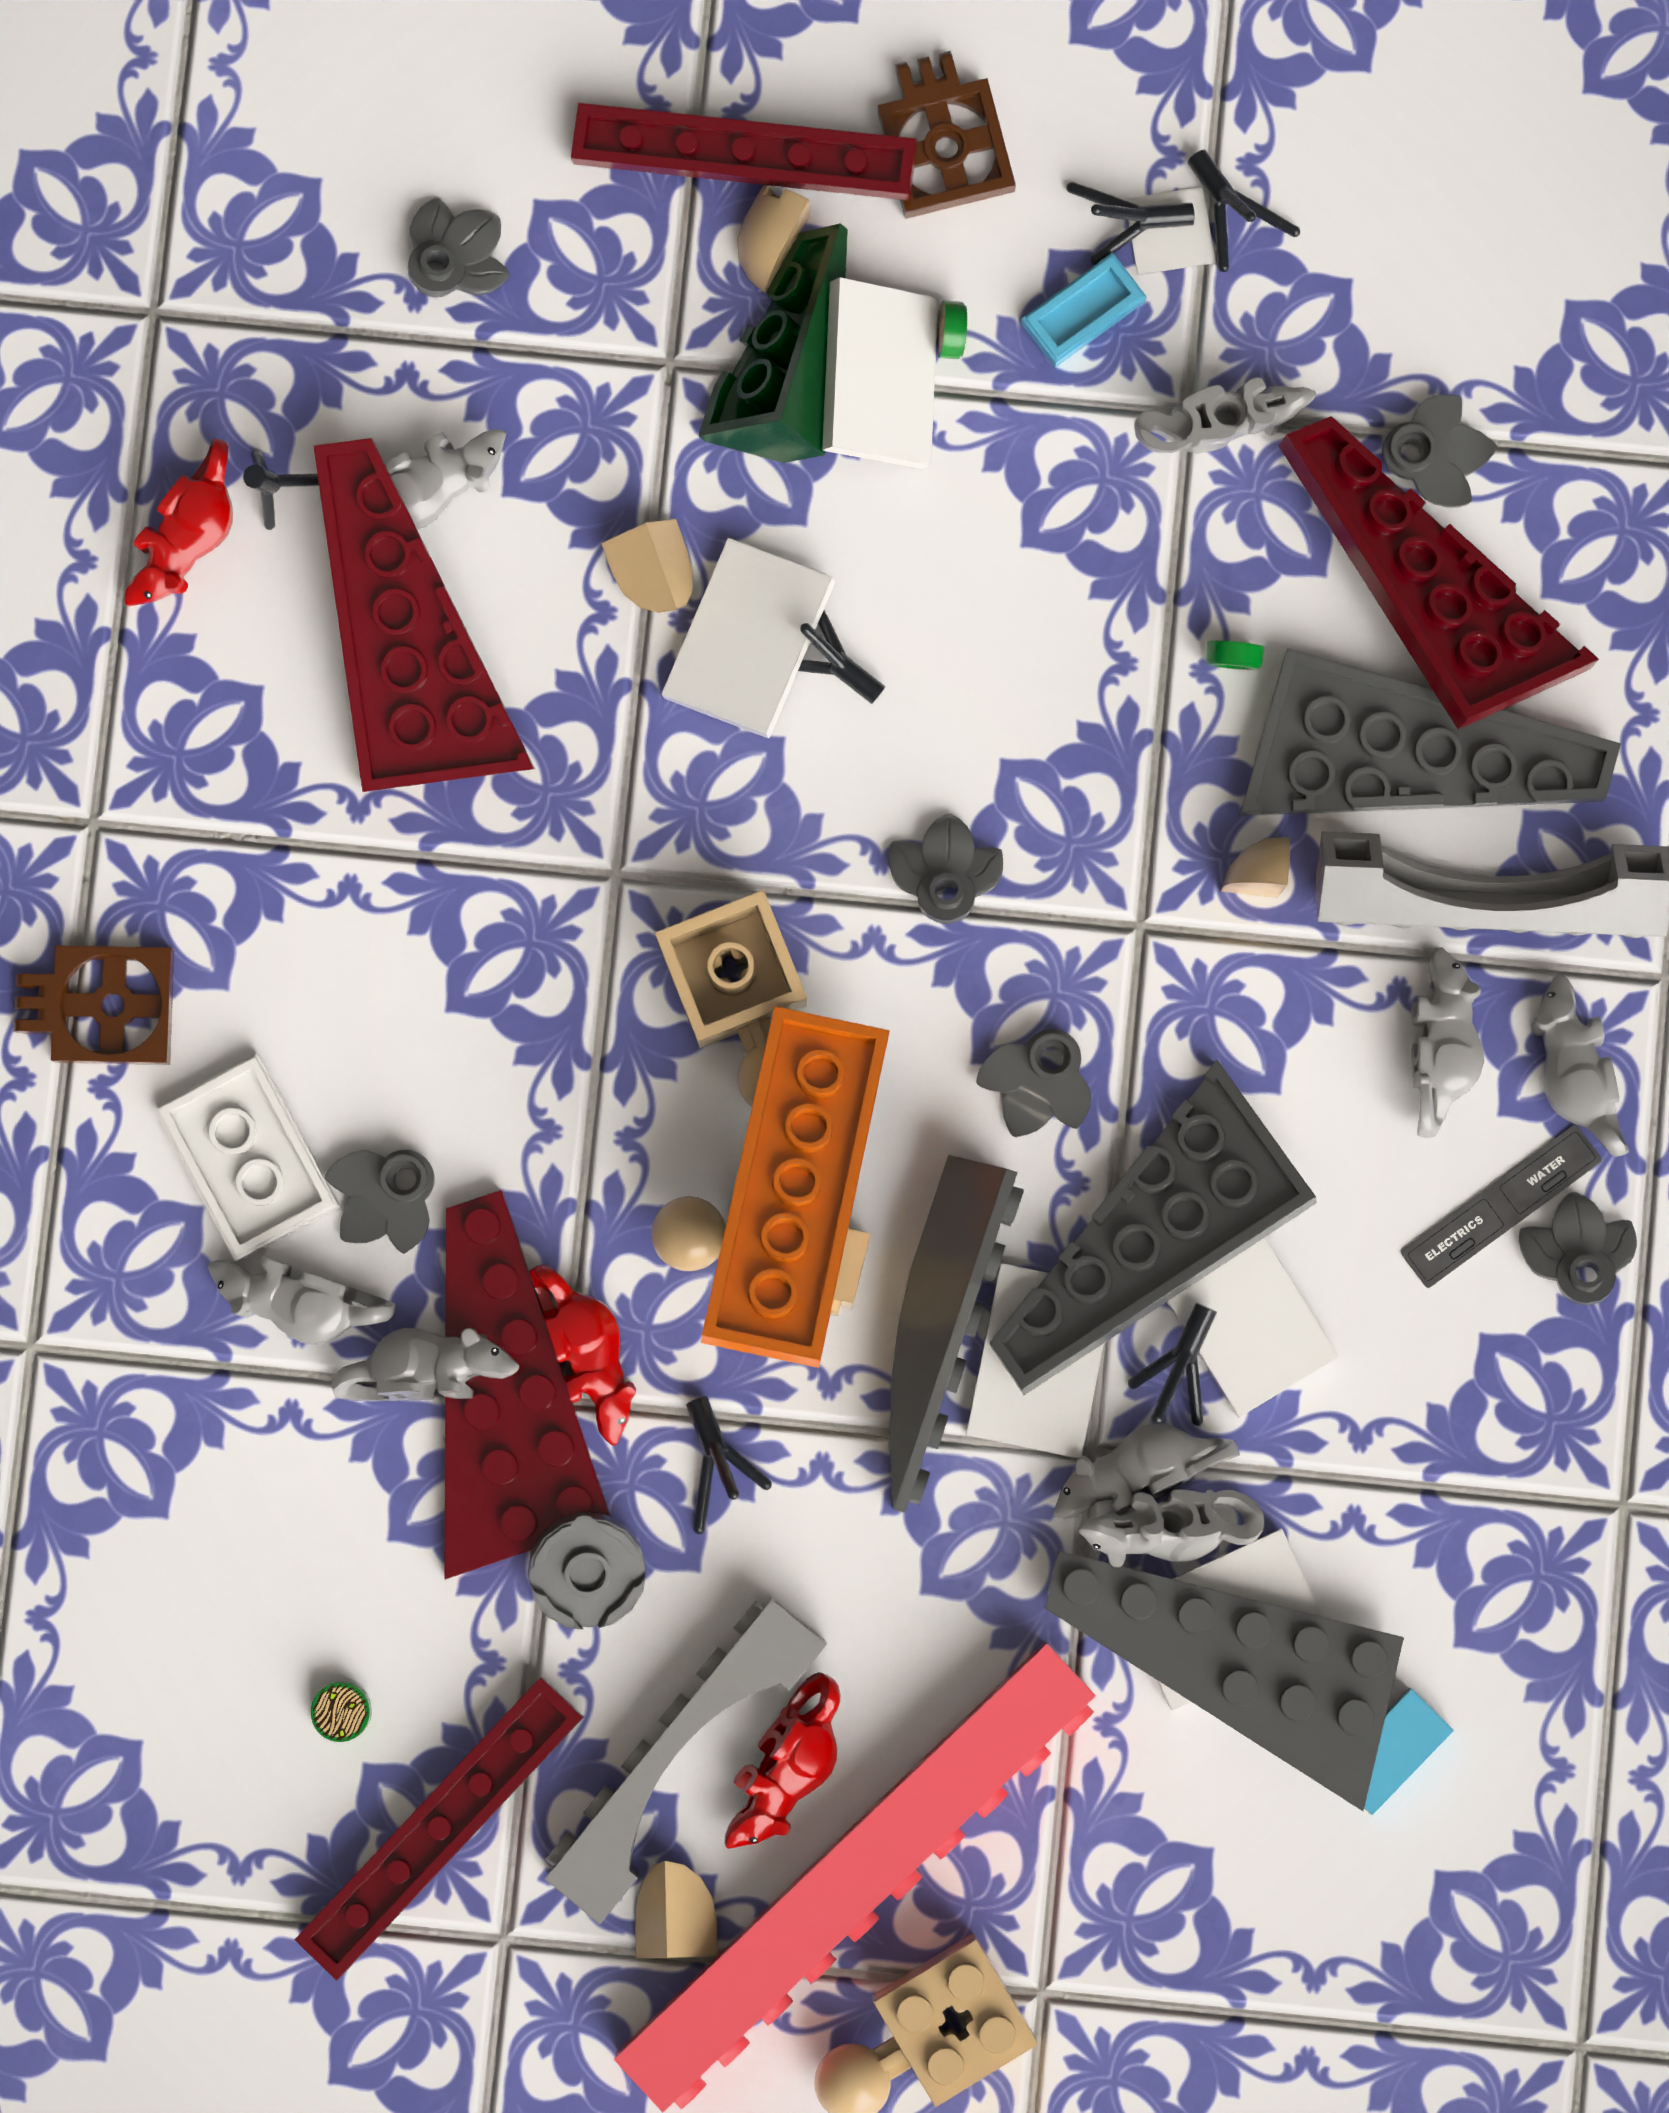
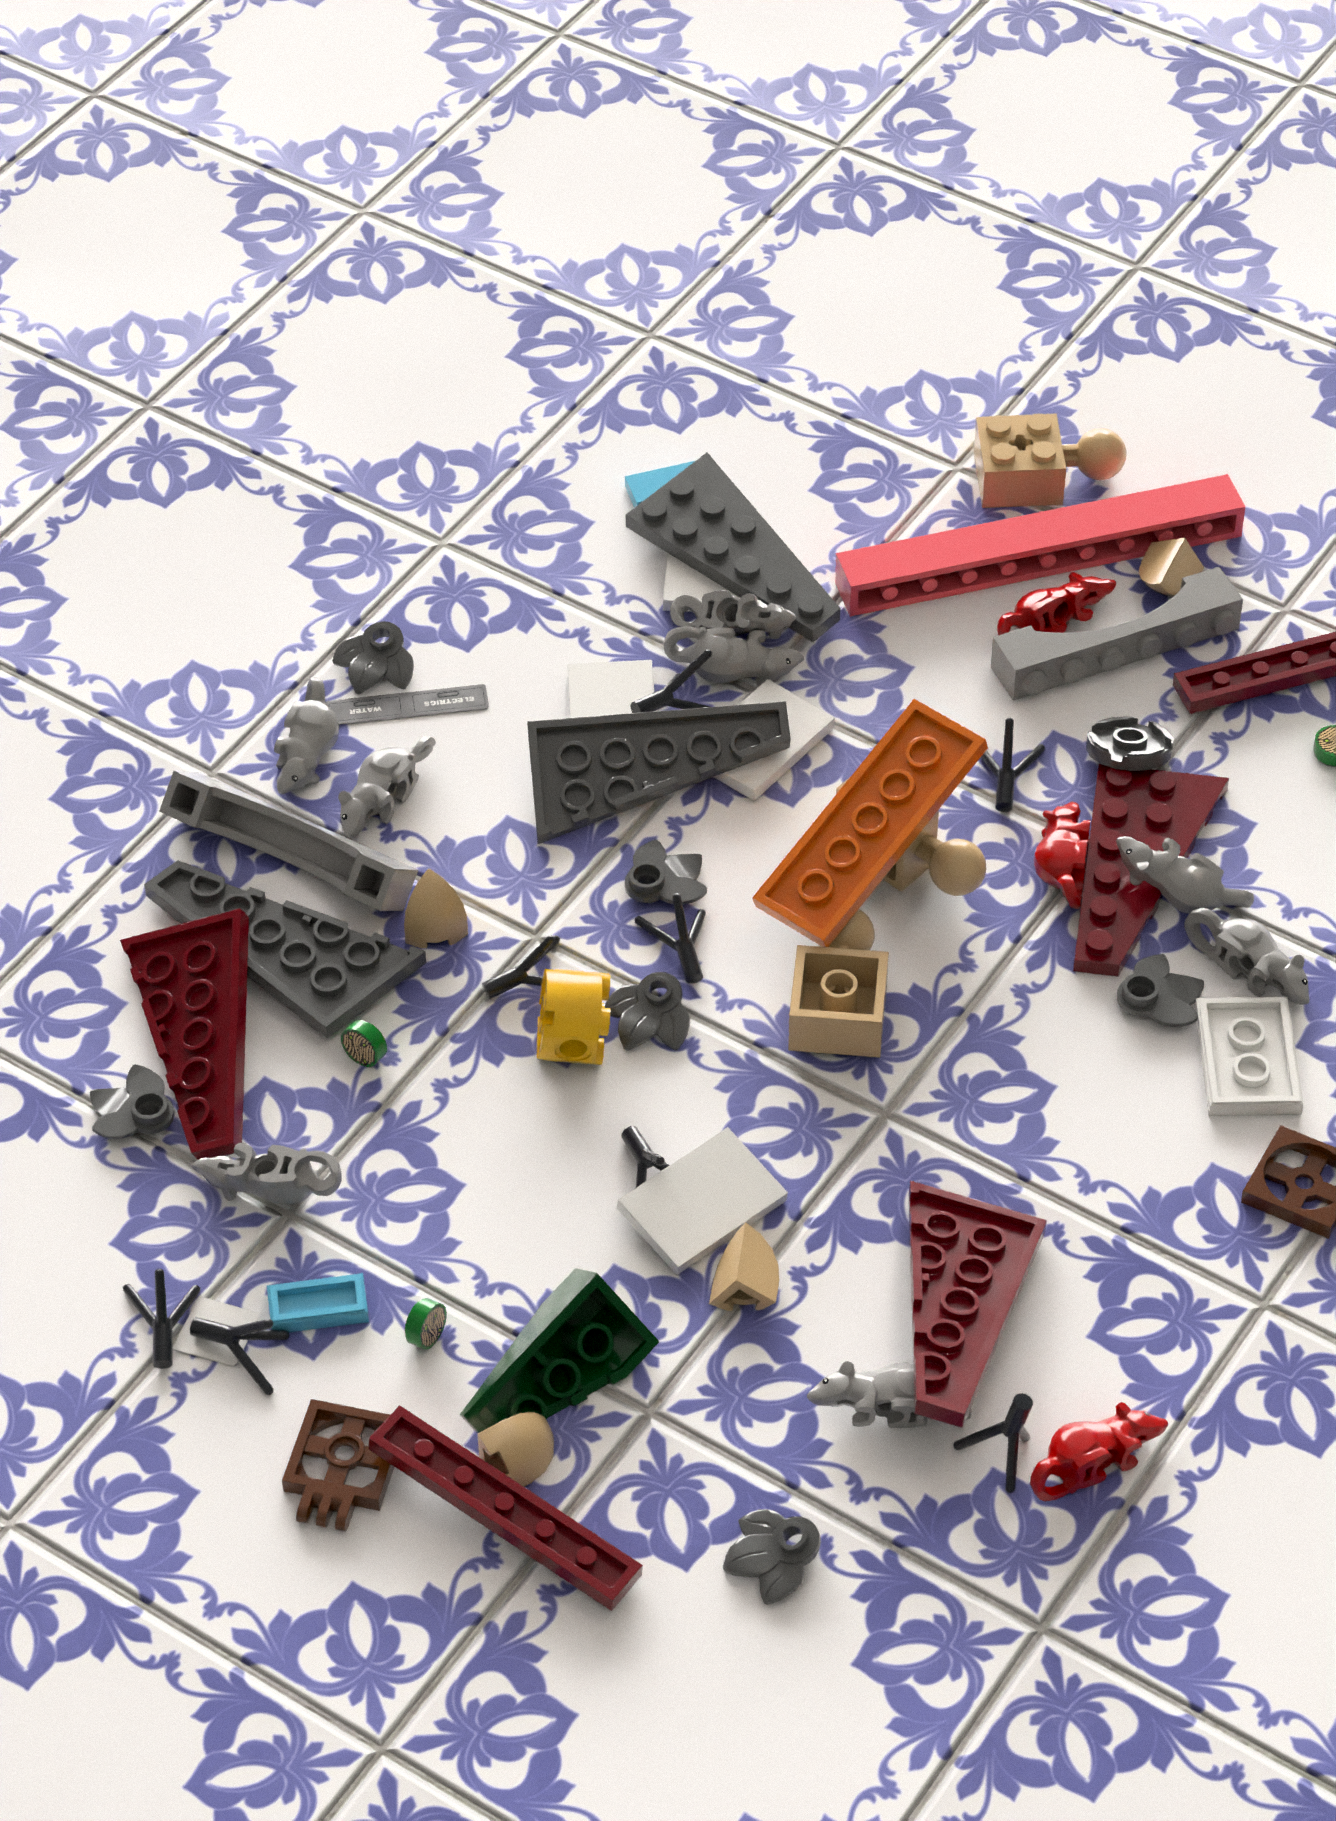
camera: 150 degrees left, 35 degrees down
(880, 373) = (498, 1311): white tile -> none
(941, 1308) = (797, 775): dark grey wedge -> none
(961, 986) = (685, 943): none -> black plant
(1016, 789) = (573, 1016): none -> yellow brick
(1115, 850) = (518, 974): none -> black plant

